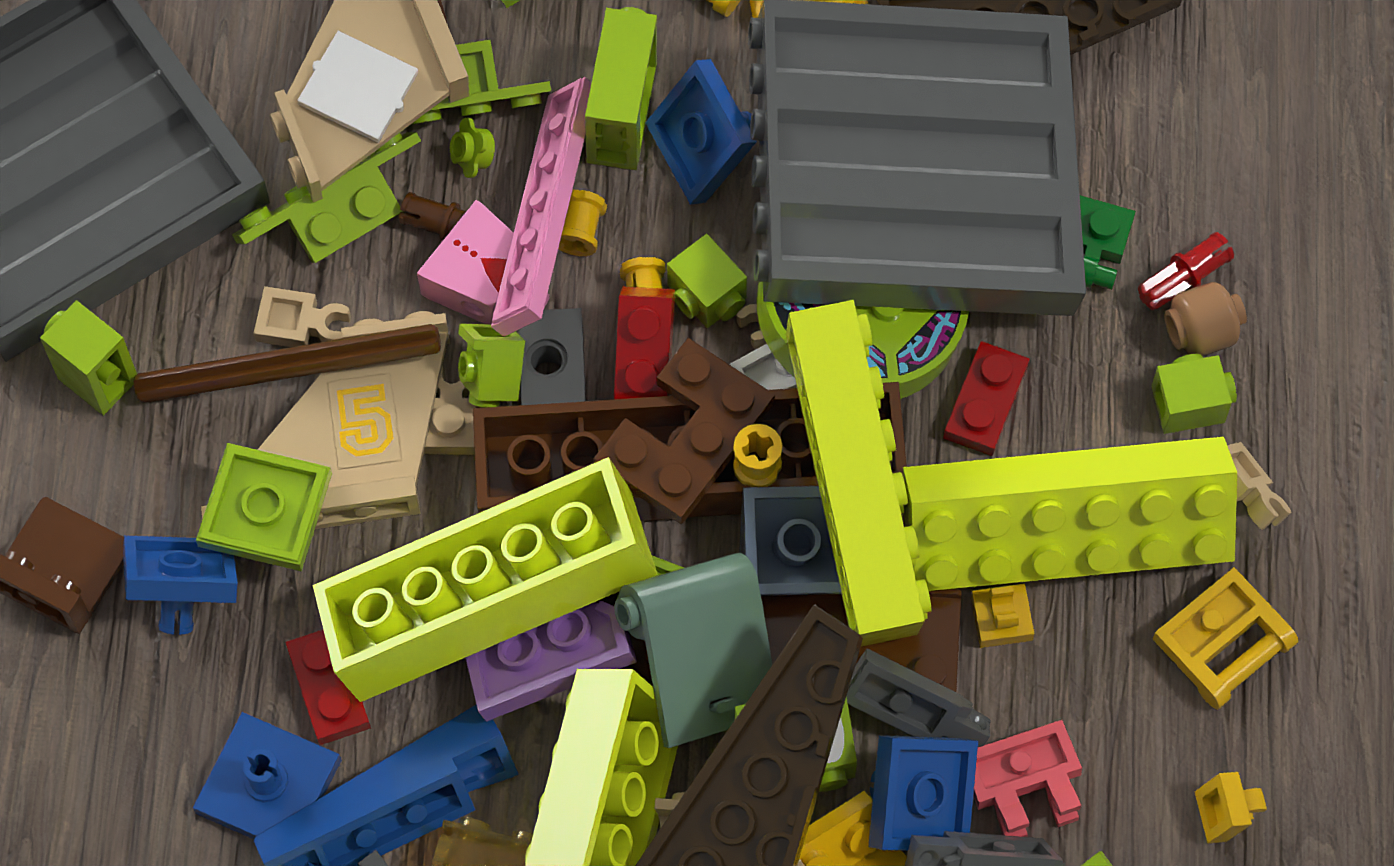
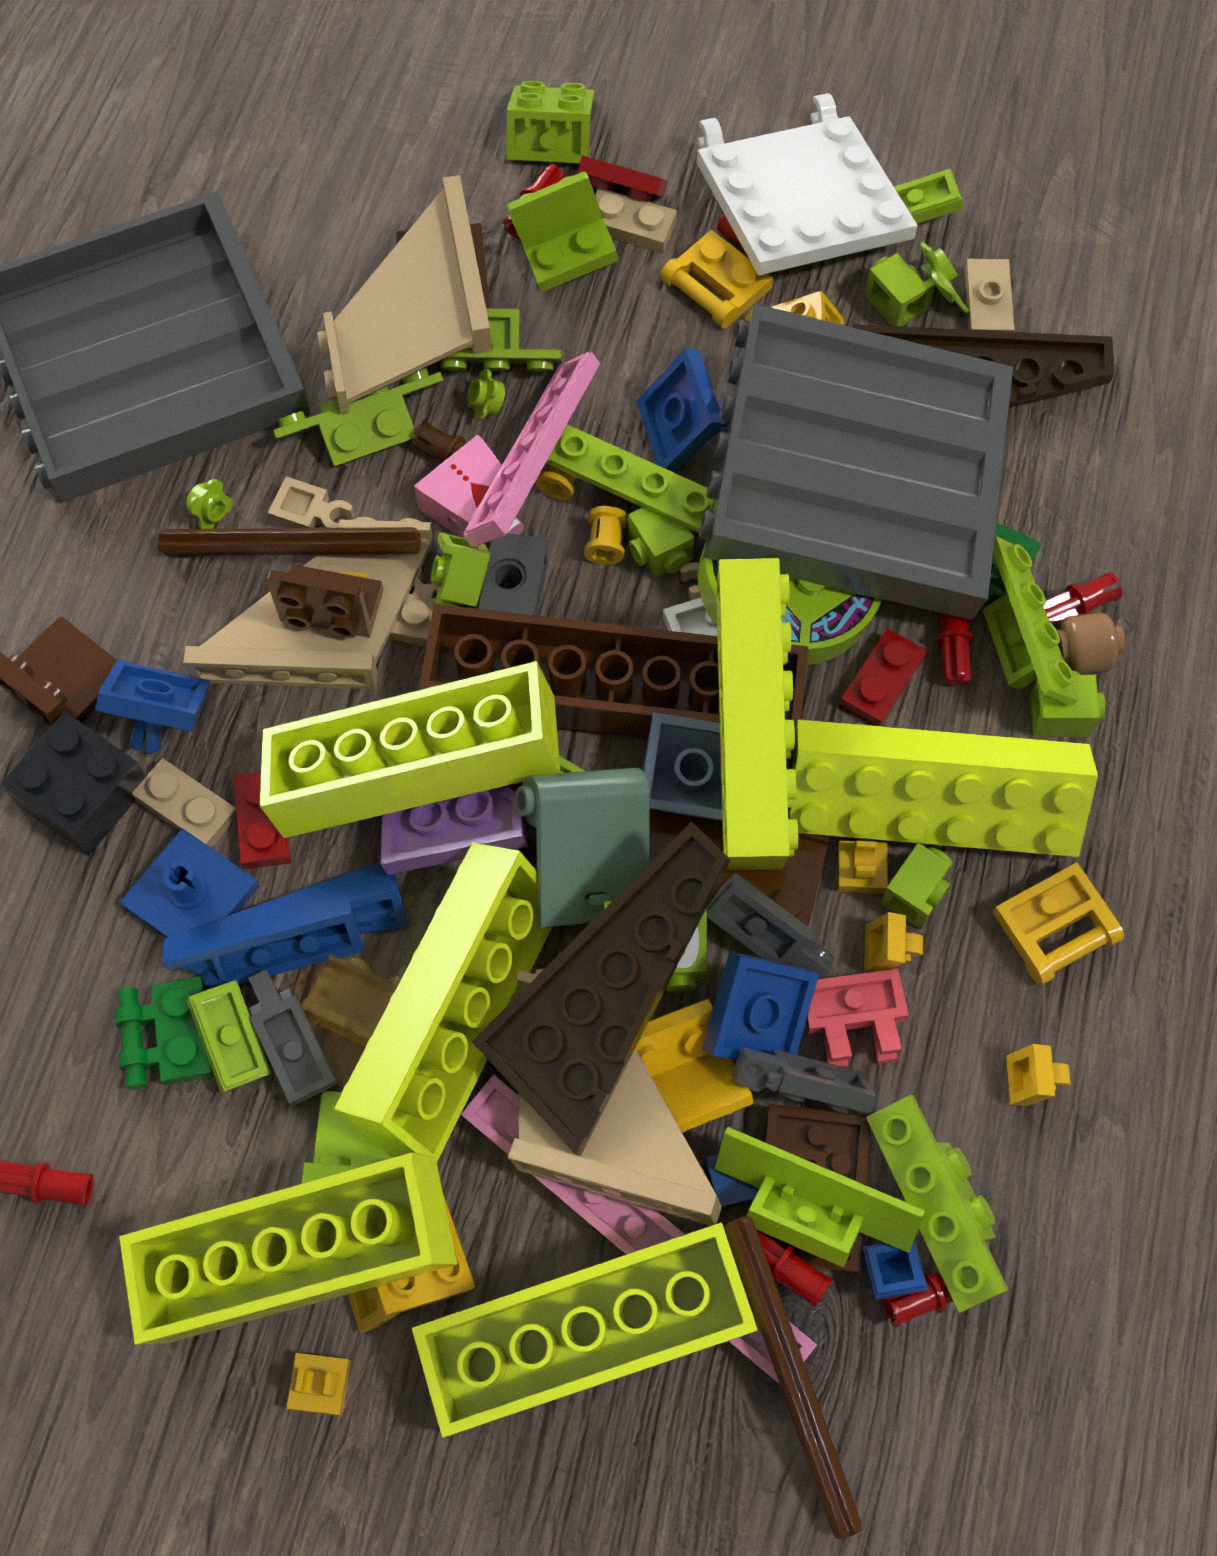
camera: 10 degrees right, 0 degrees up
(88, 356) = (122, 505): lime brick -> none
(112, 684) = (75, 783): none -> black brick
(181, 334) = (208, 503): none -> lime plate
(236, 683) = (185, 803): none -> tan plate
(264, 507) = (237, 655): lime tile -> none
(349, 425) = (325, 600): none -> reddish brown bracket
(358, 86) = (396, 322): white piece -> none
(621, 88) = (619, 365): lime window -> none
(643, 340) = (594, 575): red brick -> none
(663, 221) = (631, 477): none -> lime bracket
(681, 474) = (649, 648): reddish brown plate -> none
(767, 444) = (675, 672): yellow bush -> none
(1046, 694) = (889, 944): none -> yellow tile
(1059, 345) = (955, 649): none -> red axle
(1067, 624) = (918, 885): none -> lime brick
(1130, 316) = (1022, 629): none -> lime bracket
(1254, 491) = (1111, 811): tan plate -> none

